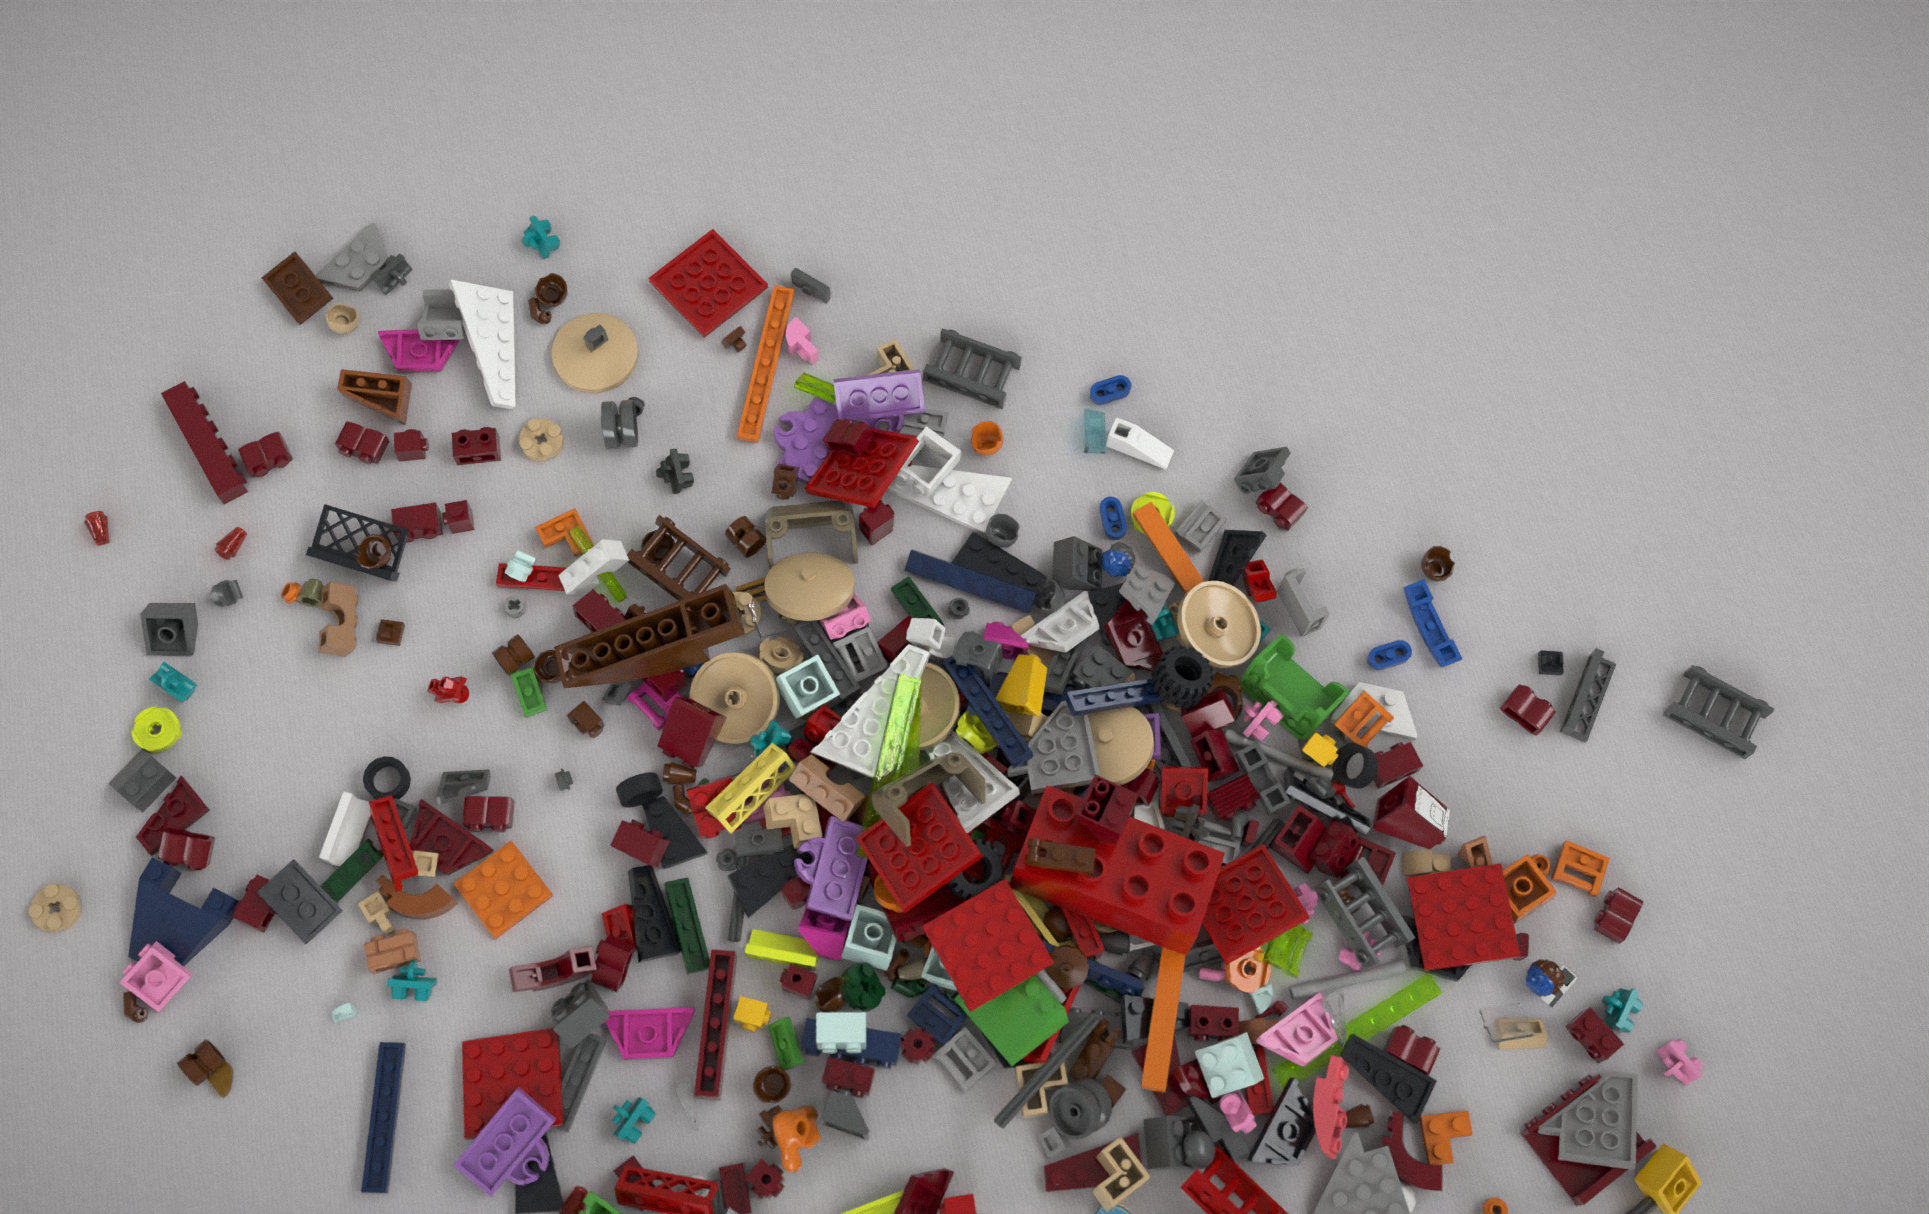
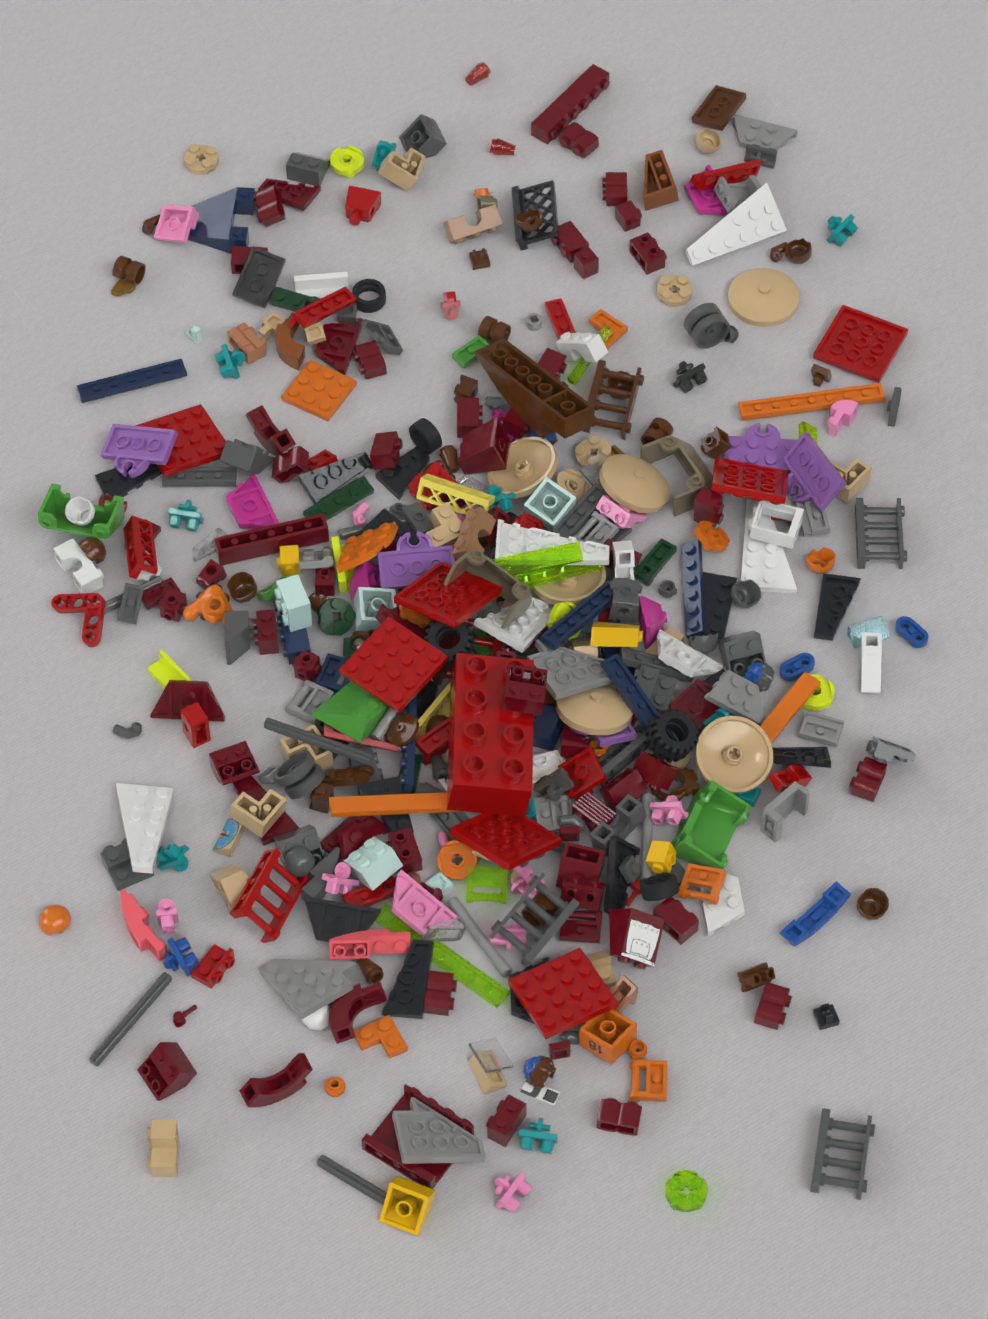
camera: 75 degrees right, 15 degrees down
(210, 666) = (402, 170): none -> tan brick
(226, 593) = (463, 158): dark grey piece -> none
(237, 738) = (361, 204): none -> red torso
(405, 320) = (732, 175): none -> red fence
(520, 566) = (562, 307): light aqua piece -> none
(564, 779) = (414, 394): dark grey plate -> none
(595, 338) = (767, 284): dark grey plate -> none
(627, 731) = (468, 415): none -> dark red brick
(715, 909) = (358, 514): none -> bright pink arm
(736, 1117) = (211, 574): none -> dark red leg
(766, 989) = (316, 559): none -> light grey plate
(784, 916) = (366, 546): none -> orange plate
(848, 437) = (769, 464): dark red brick -> none
(912, 535) = (711, 537): none -> orange plate
(1032, 1181) = (233, 763): none -> dark red slope
(1041, 448) = (834, 601): none -> black wing
(1060, 856) = (474, 672): reddish brown plate -> none
(1388, 656) = (773, 894): blue plate -> none
(1490, 715) = (755, 976): none -> reddish brown hips
(1583, 695) = (811, 1044): dark grey fence -> none
(1731, 873) = (679, 1200): none -> clear neon green plate

